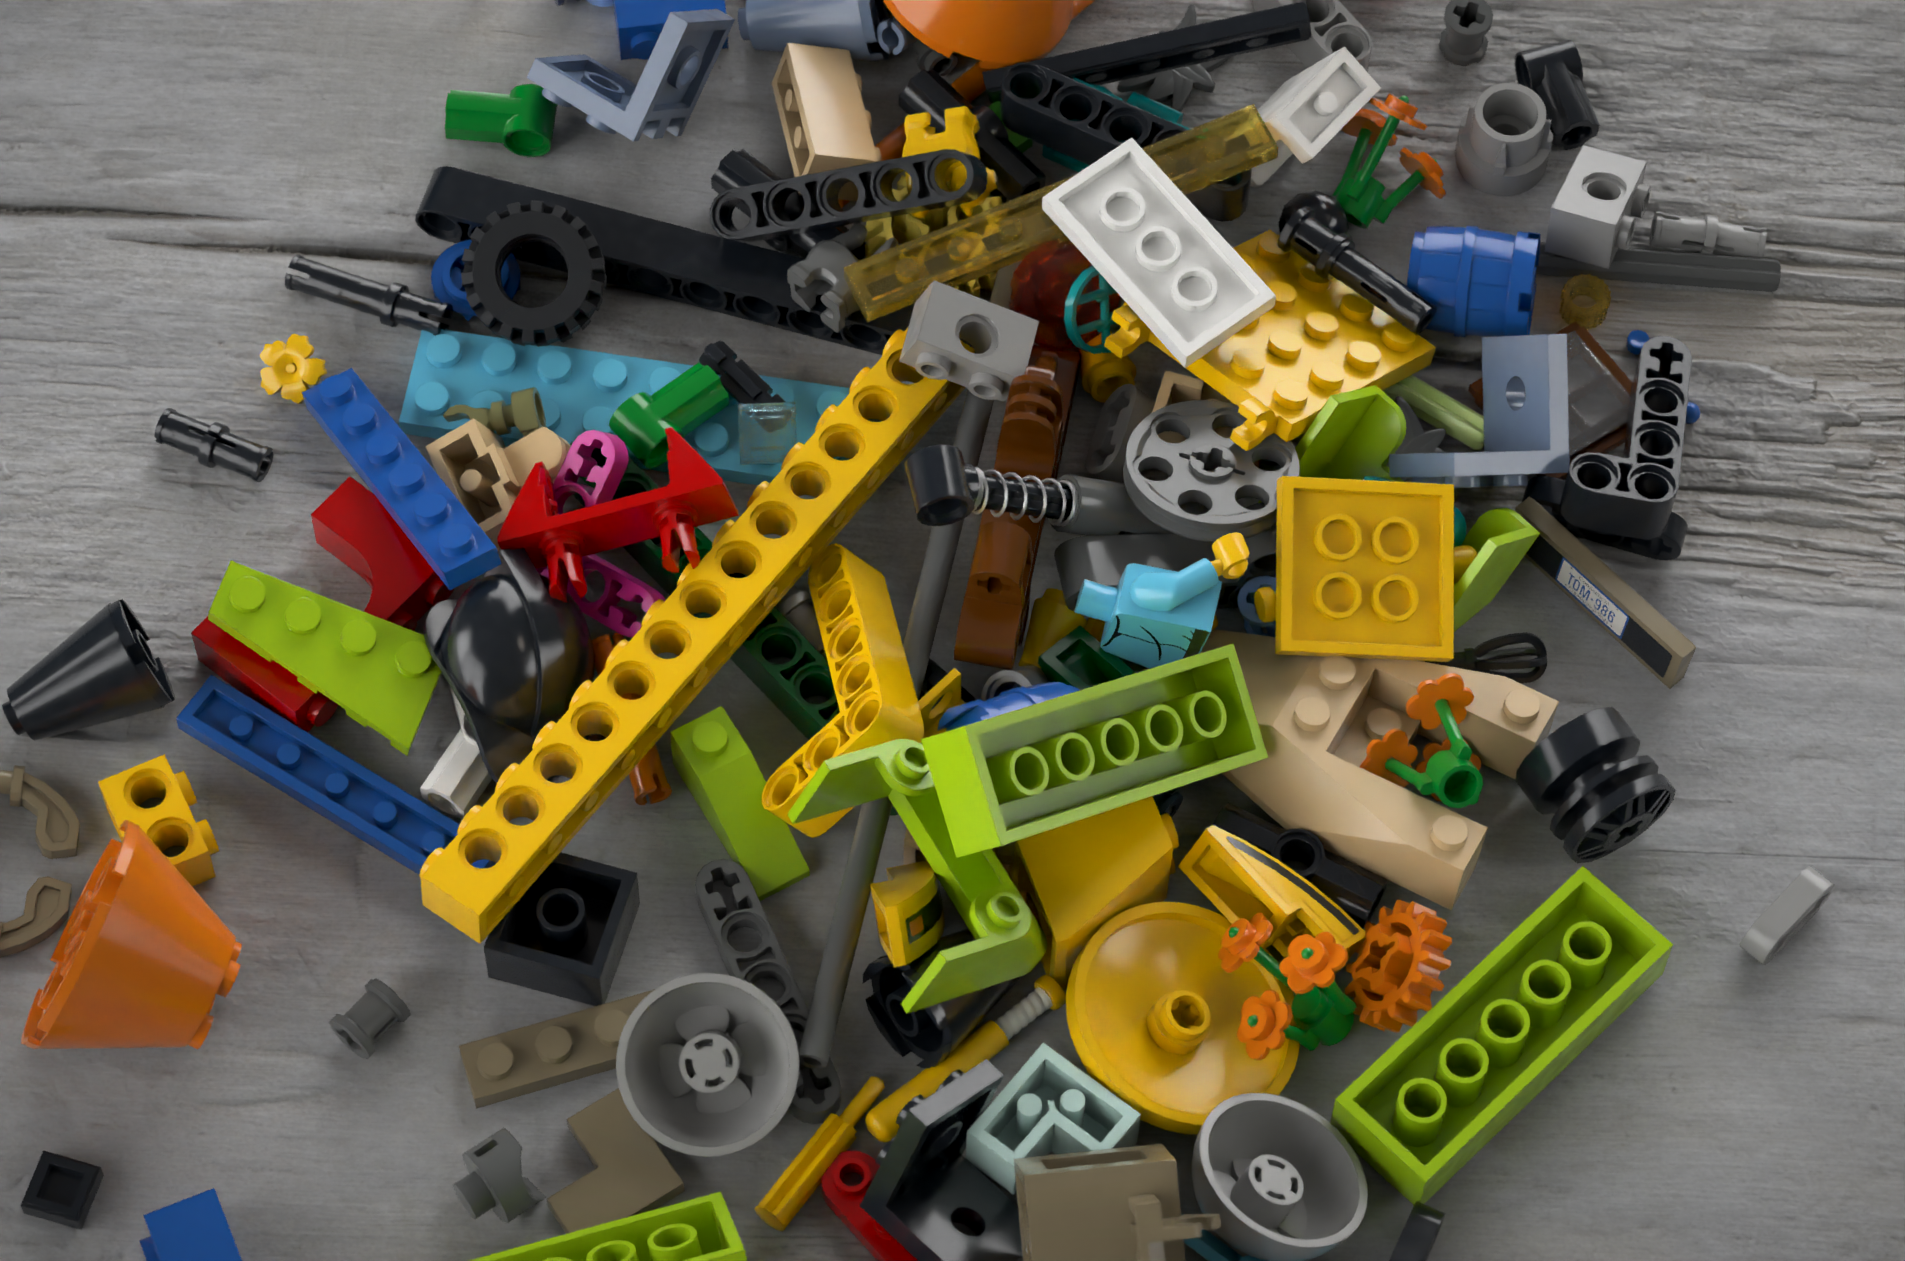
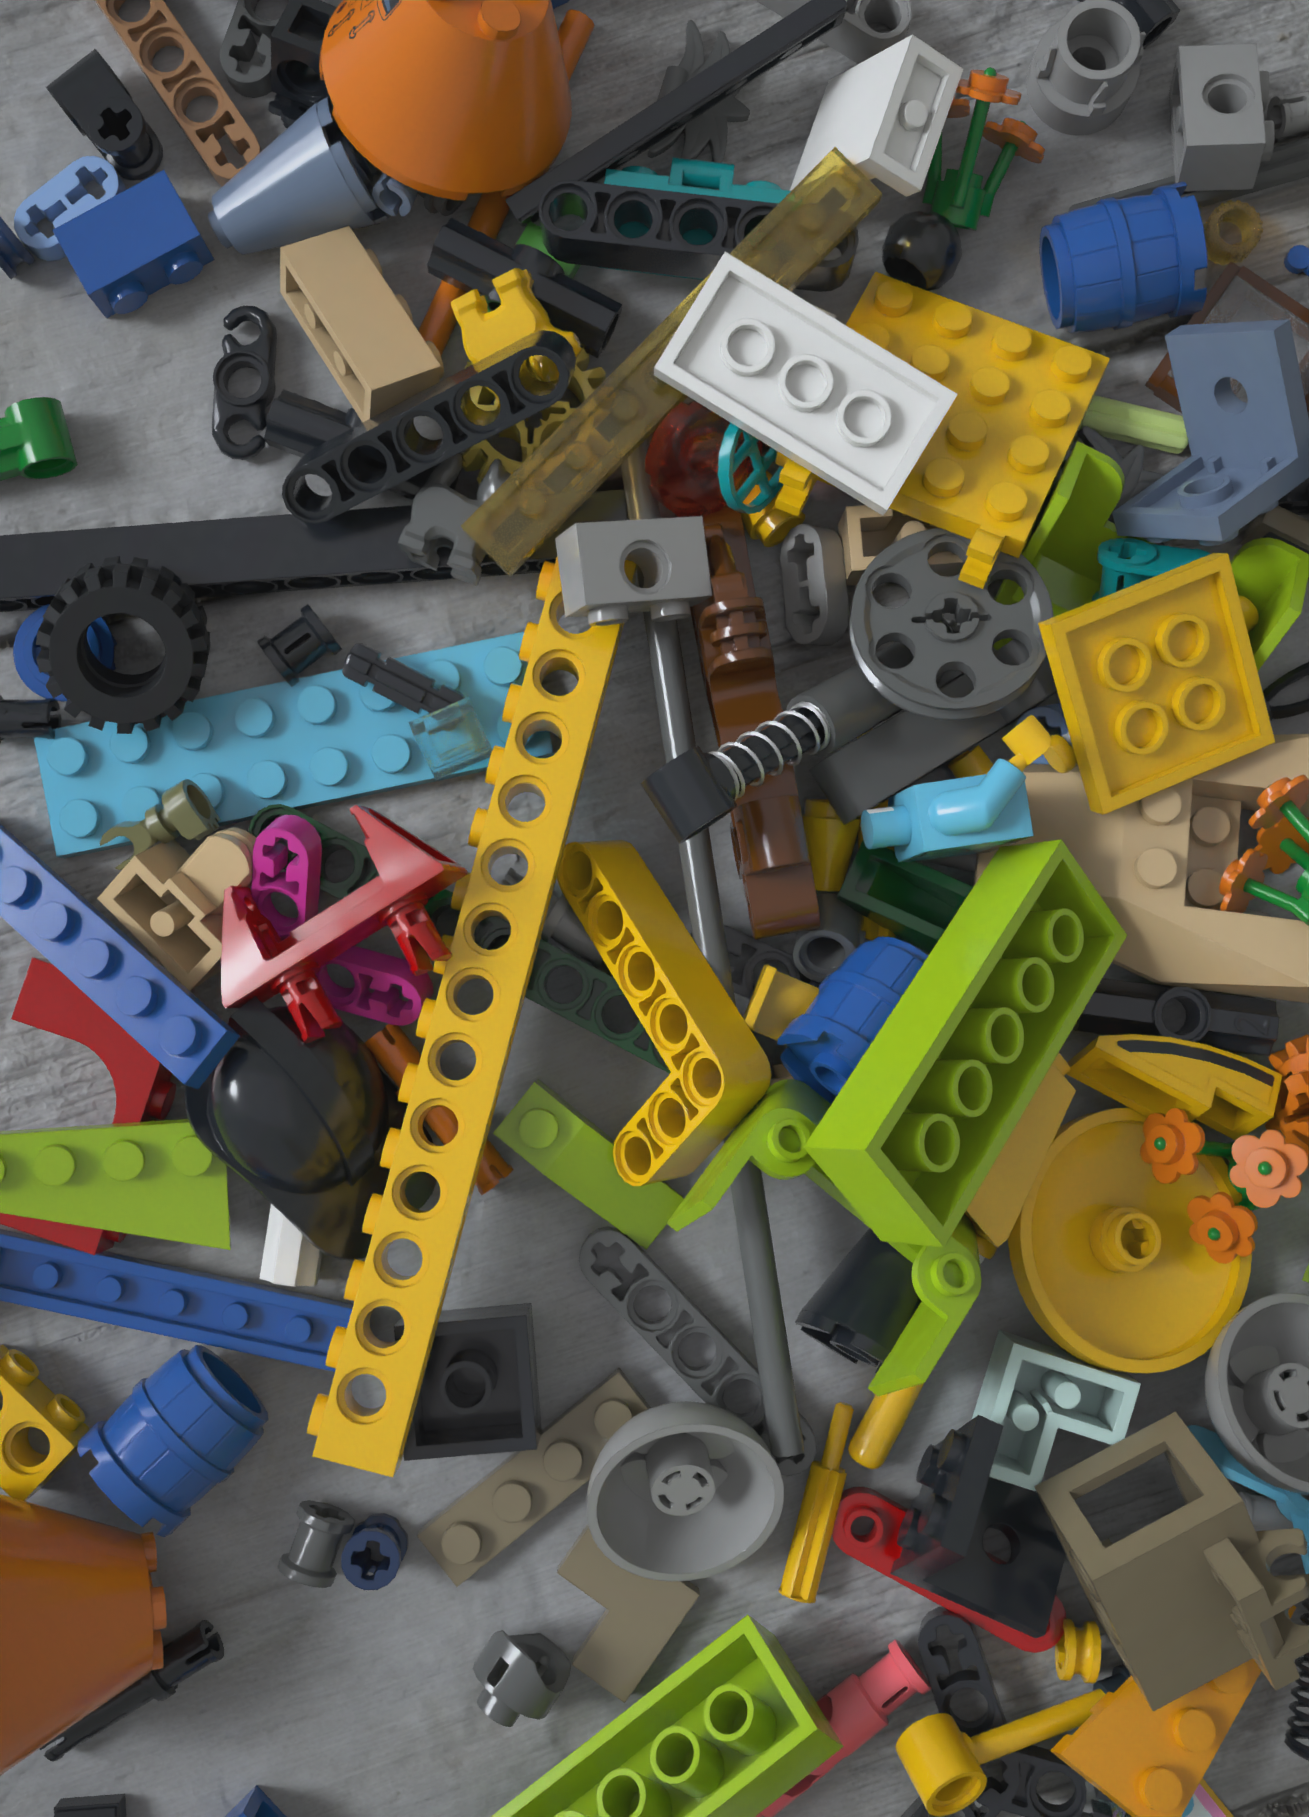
camera: 20 degrees left, 25 degrees up
(154, 1079) = (180, 1660): none -> black pin
(297, 876) = (175, 1438): none -> blue piece
(412, 1024) = (356, 1555): none -> dark blue bush
(664, 91) = (127, 385): sand blue bracket -> none
(671, 335) = (305, 627): none -> black bush
(679, 405) = (330, 769): green piece -> none
(693, 153) = (231, 409): none -> black piece
(908, 911) = (823, 1257): yellow slope -> none
(1336, 258) = (975, 294): black pin -> none

